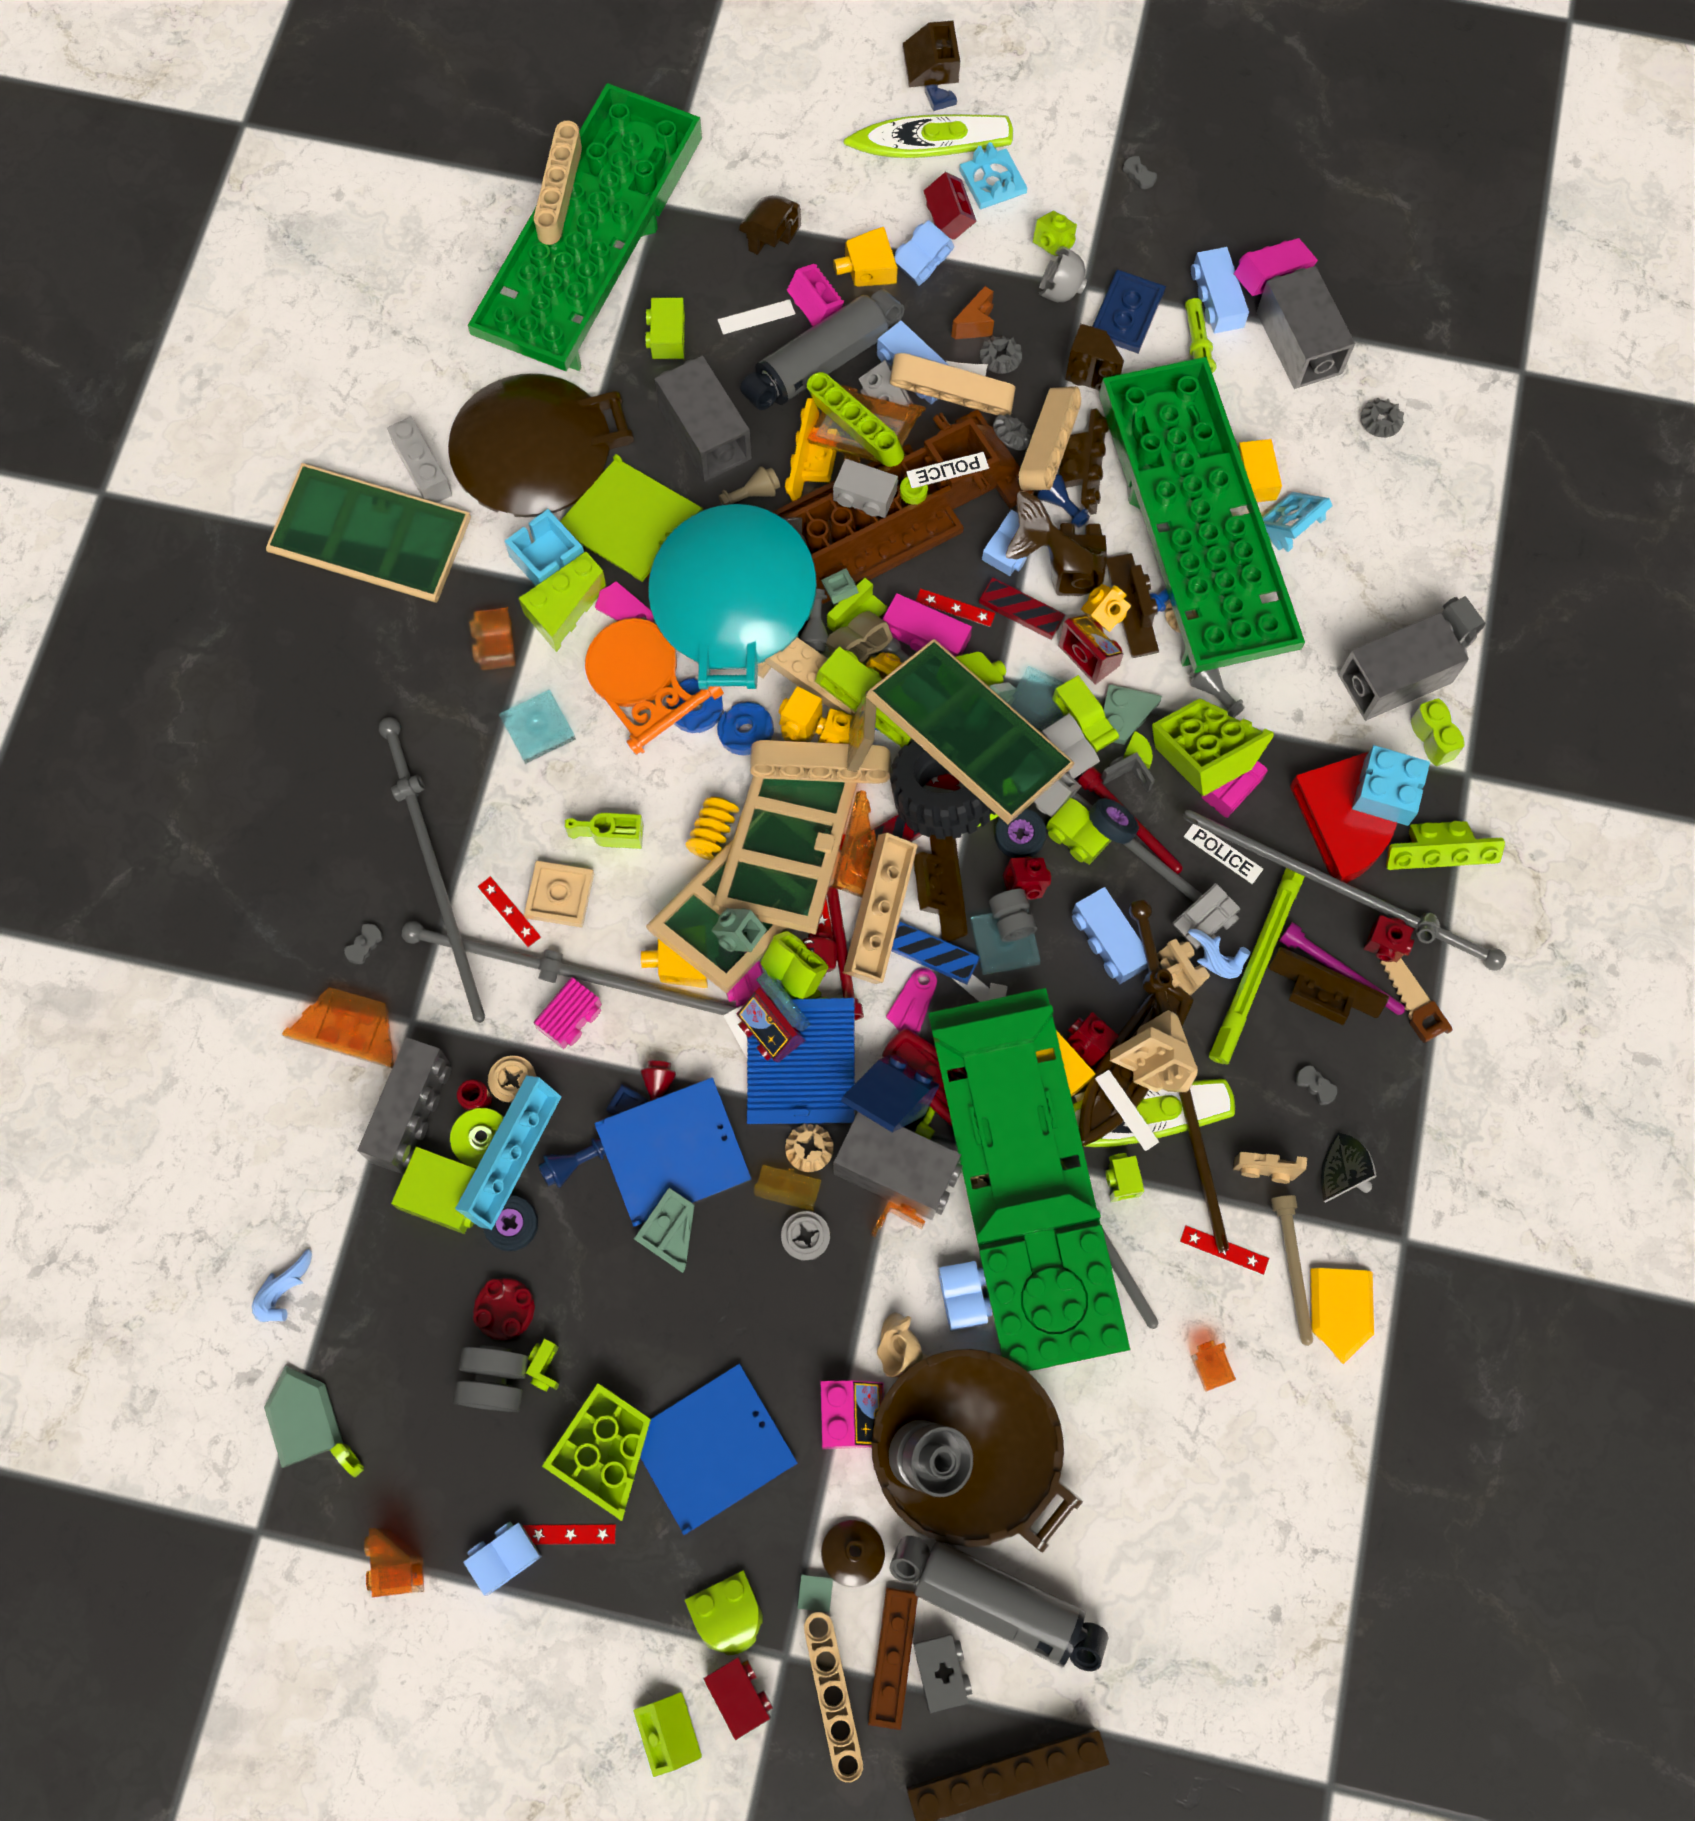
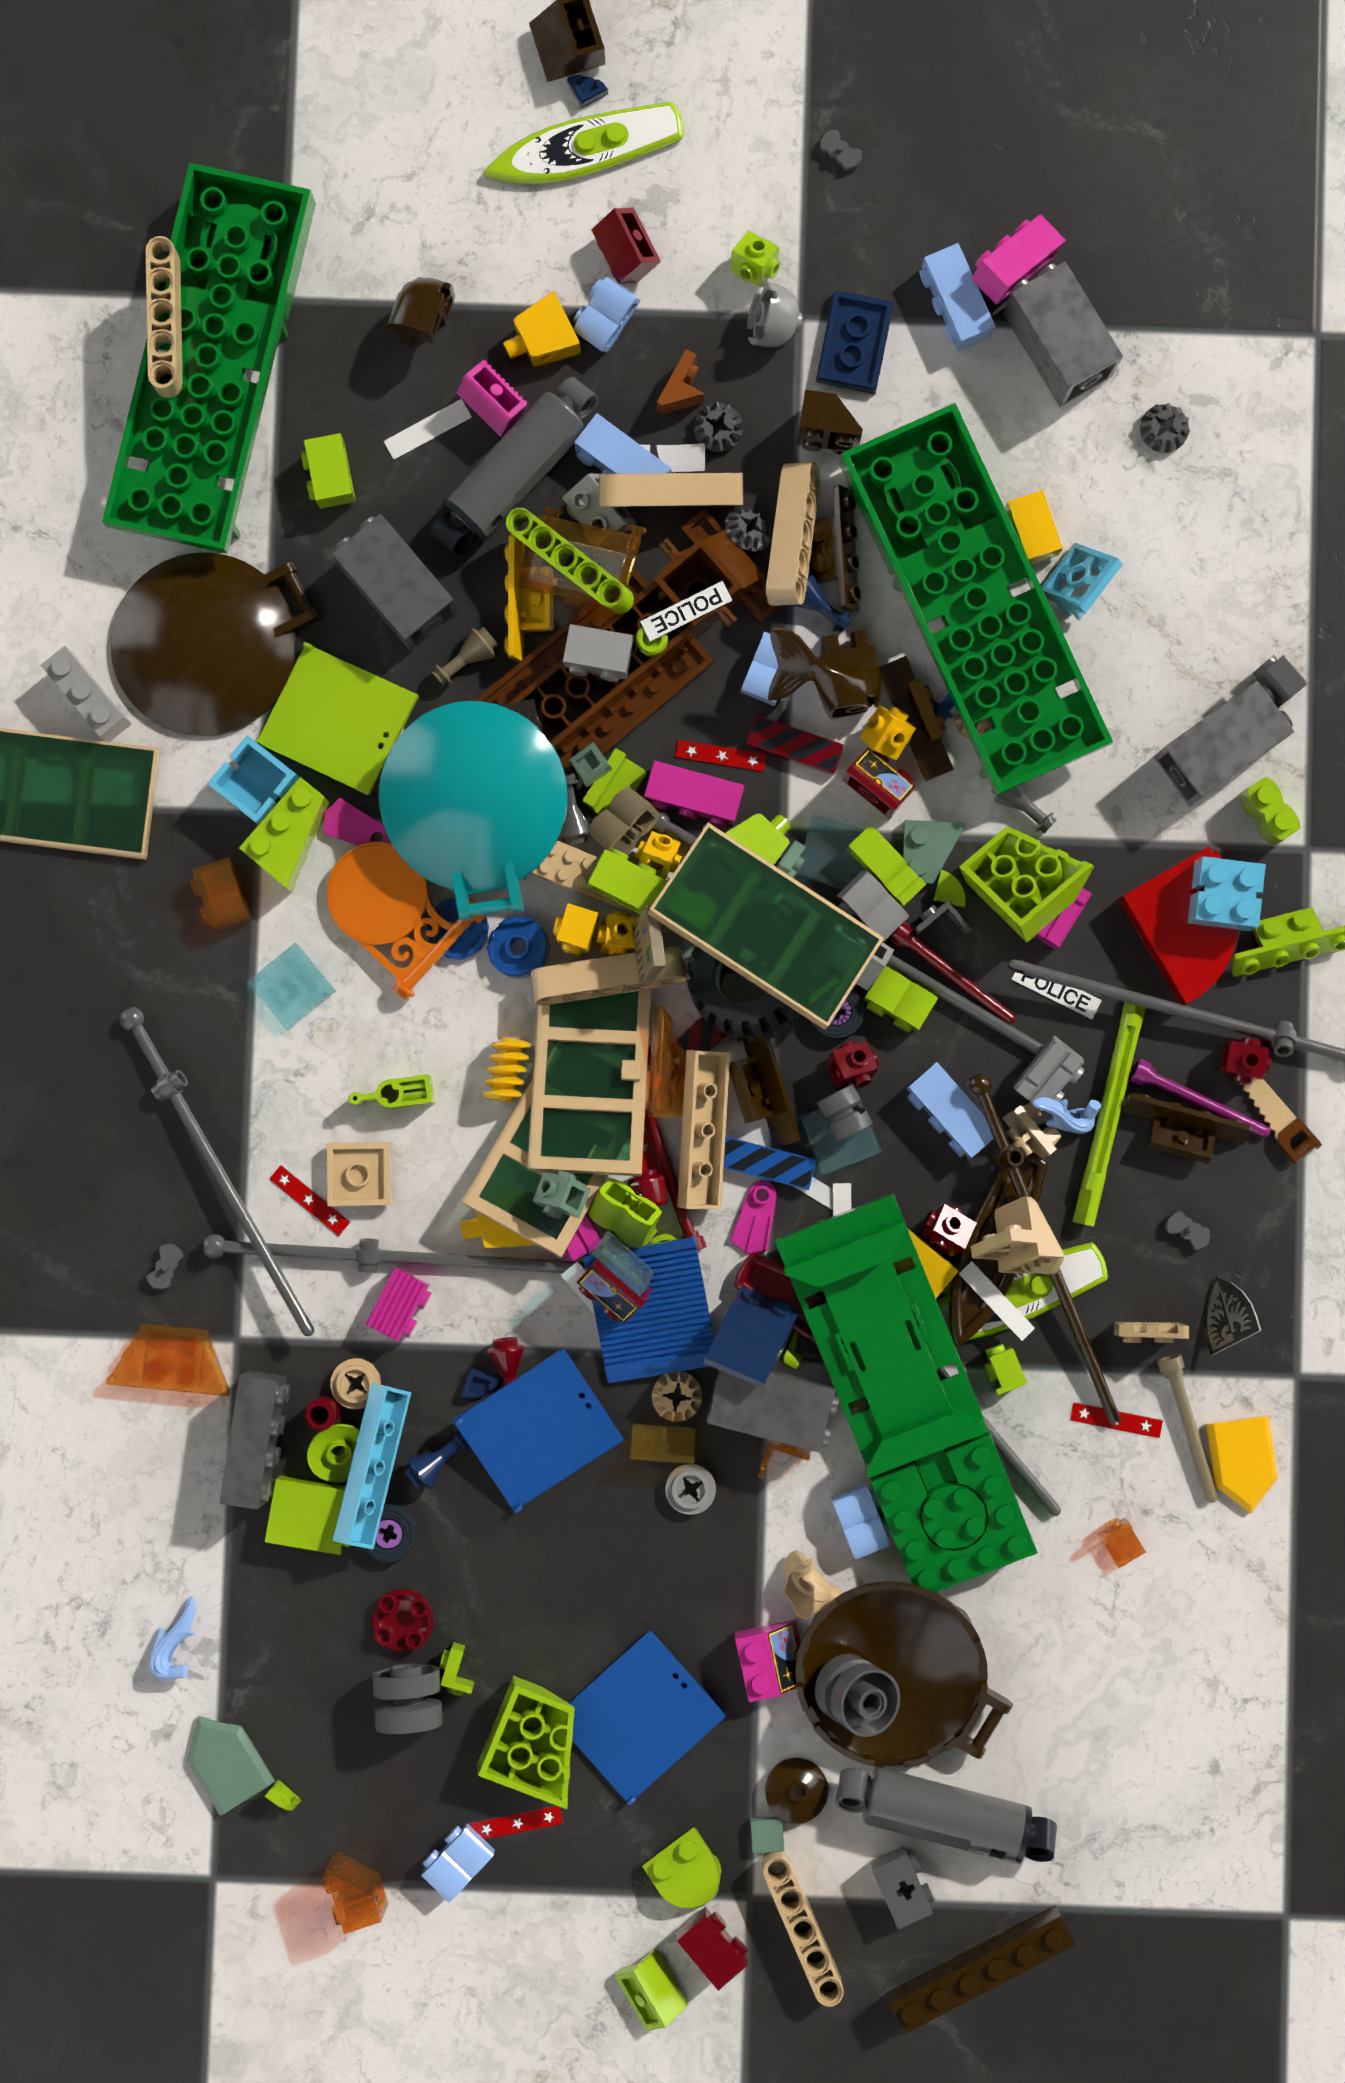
camera: 10 degrees left, 15 degrees up
(669, 1229) = (551, 1510): sand green wing -> none
(893, 1659) = (853, 1880): reddish brown tile -> none
(1014, 183) = (674, 161): medium azure piece -> none
(1113, 821) = (935, 986): black bush -> none
(1200, 345) = (946, 376): lime pin -> none

